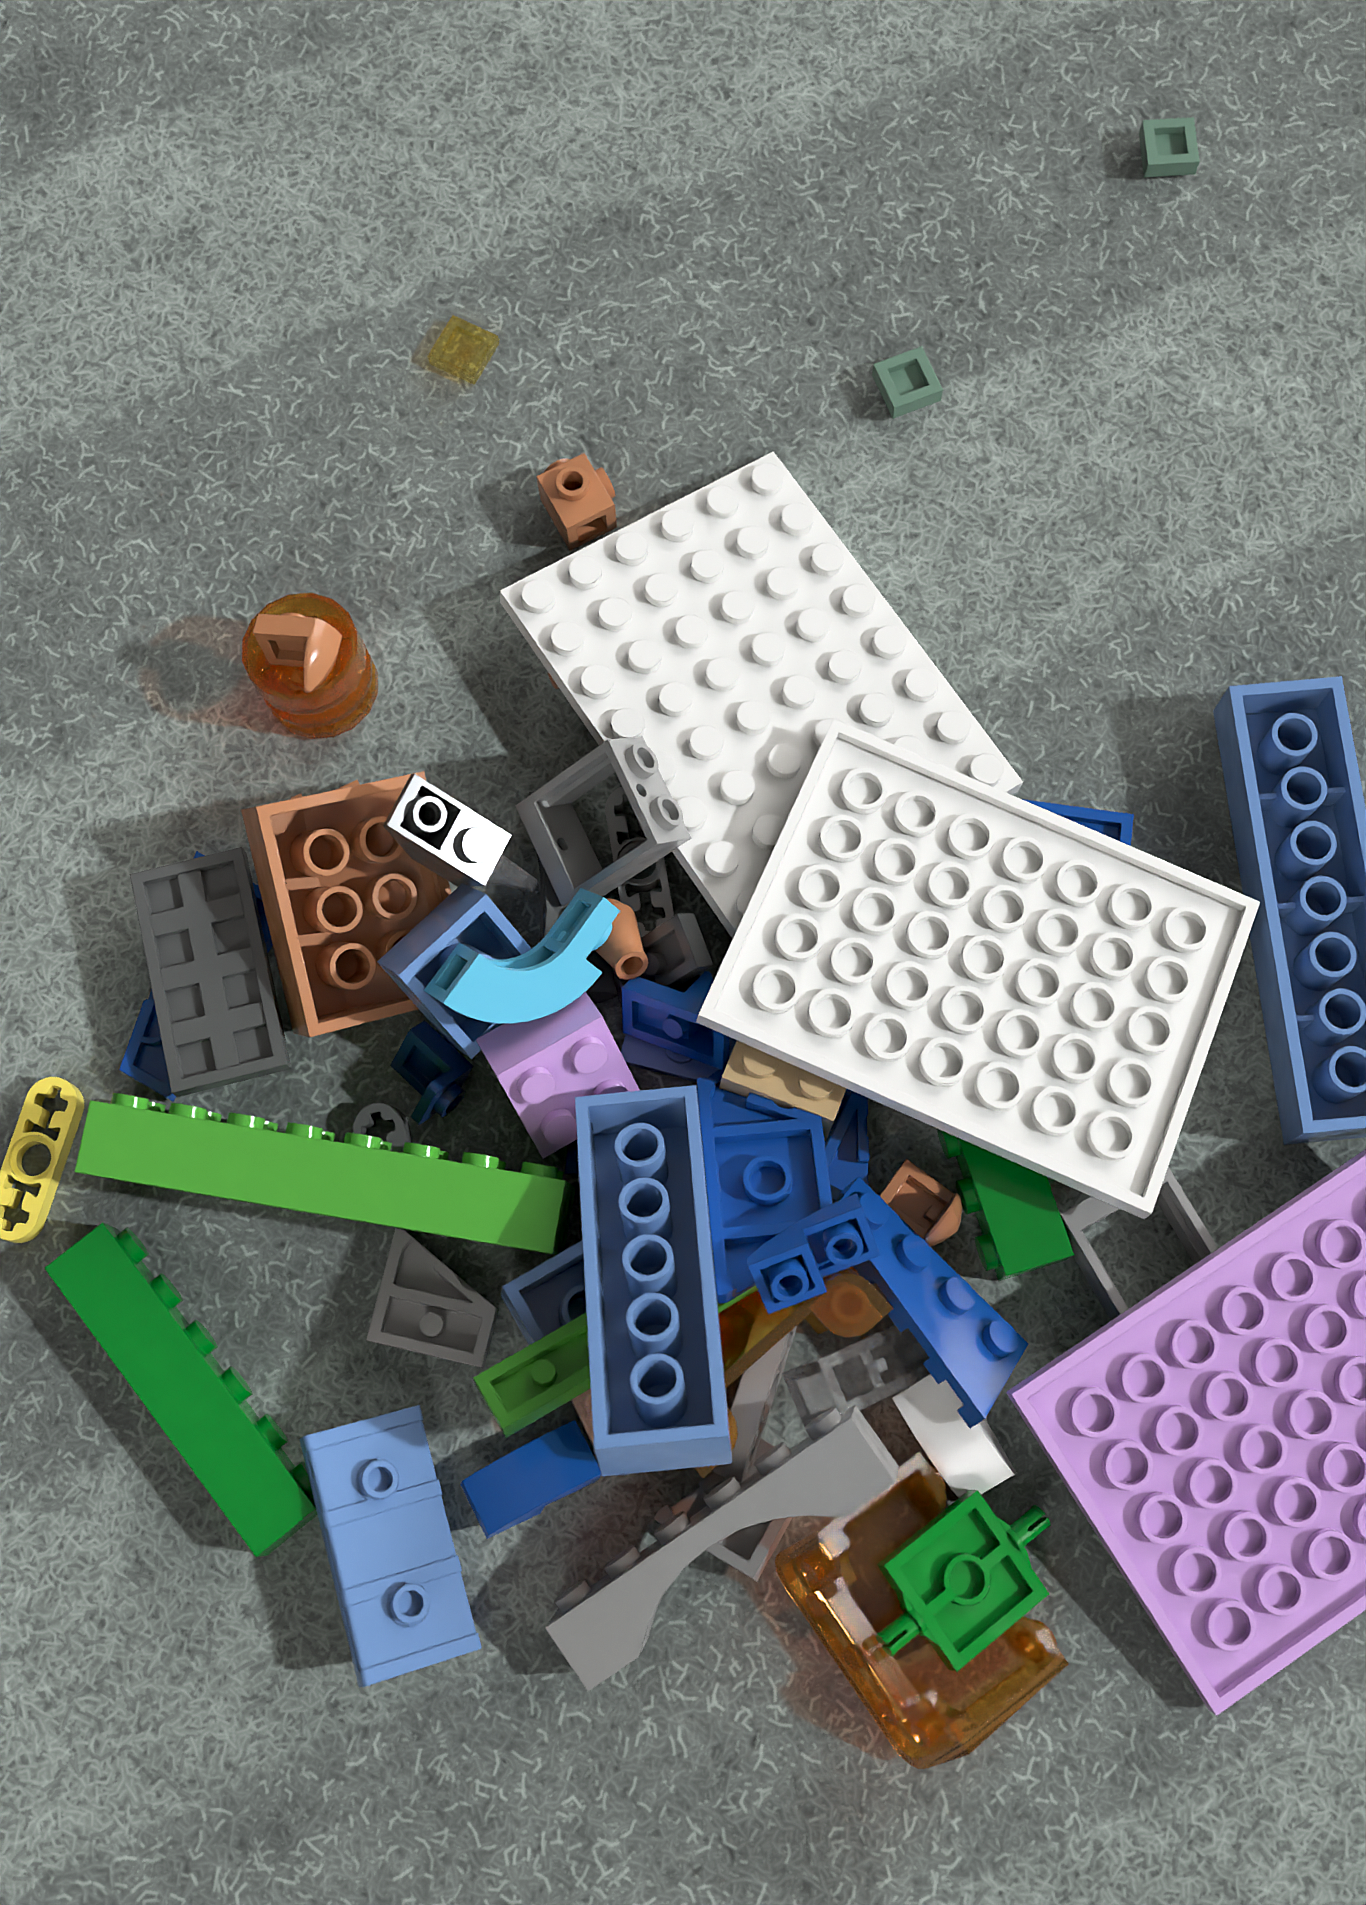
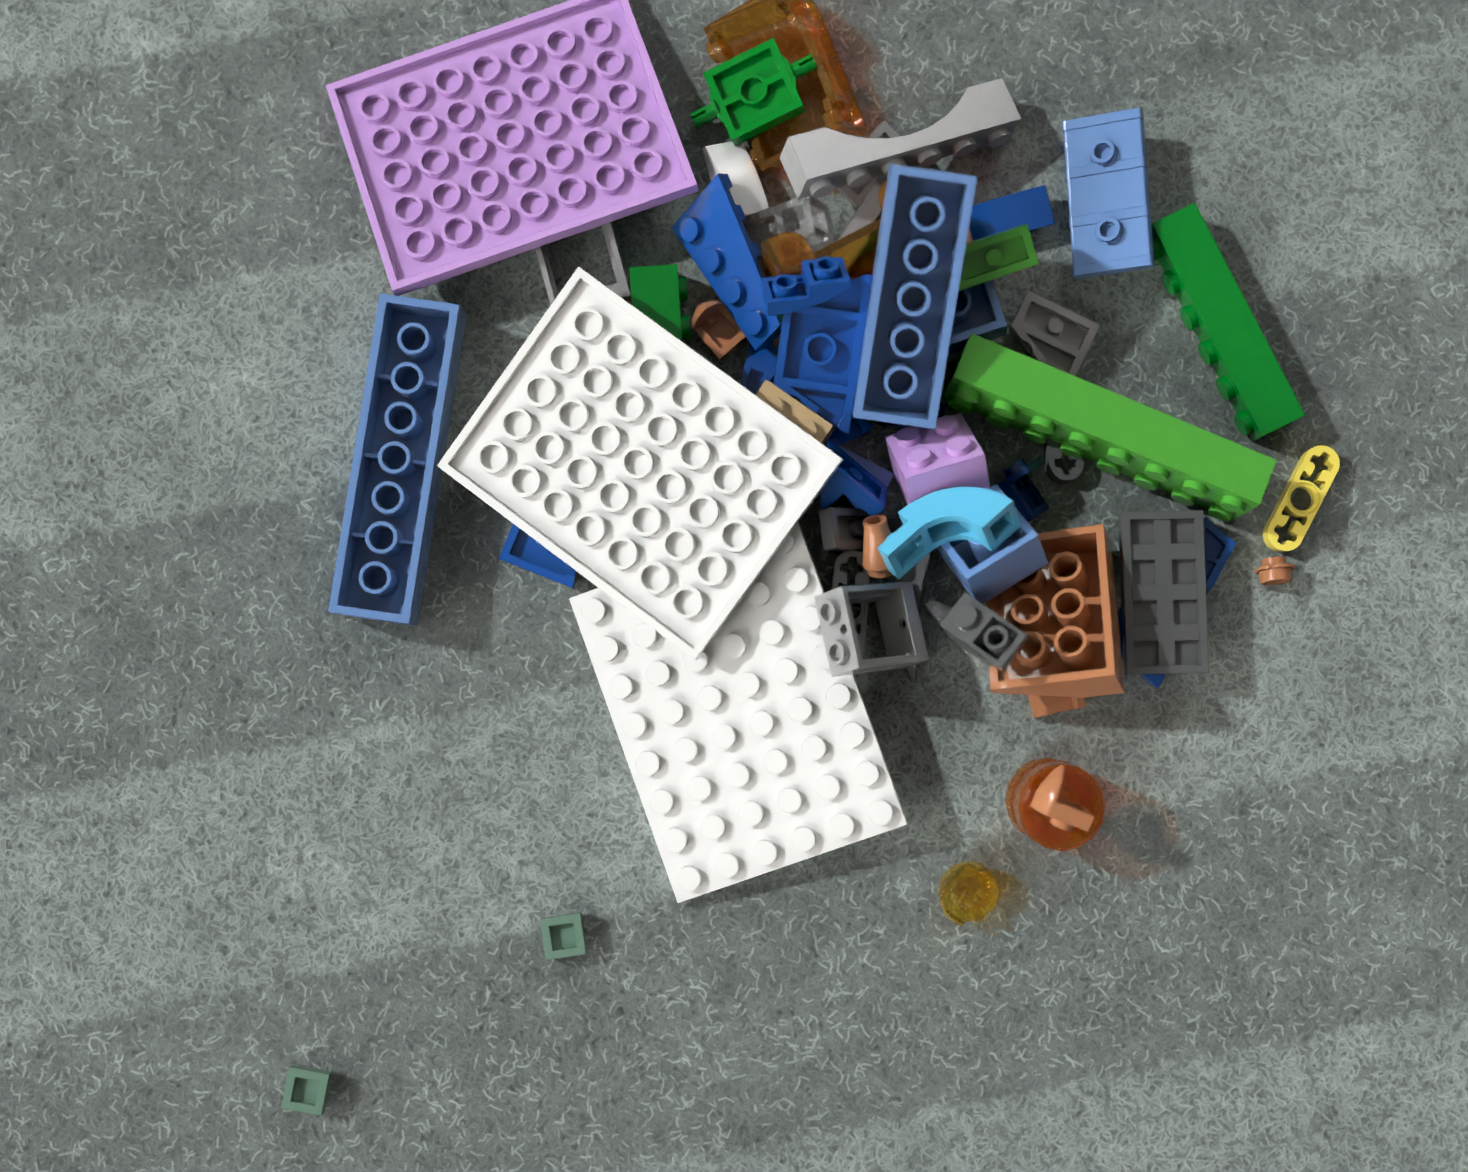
camera: 165 degrees left, 10 degrees up
(58, 1048) = (1275, 571): none -> nougat plate
(410, 527) = (971, 879): none -> clear yellow hair
(463, 349) = (890, 1050): clear yellow tile -> none
(578, 499) = (832, 898): nougat brick -> none

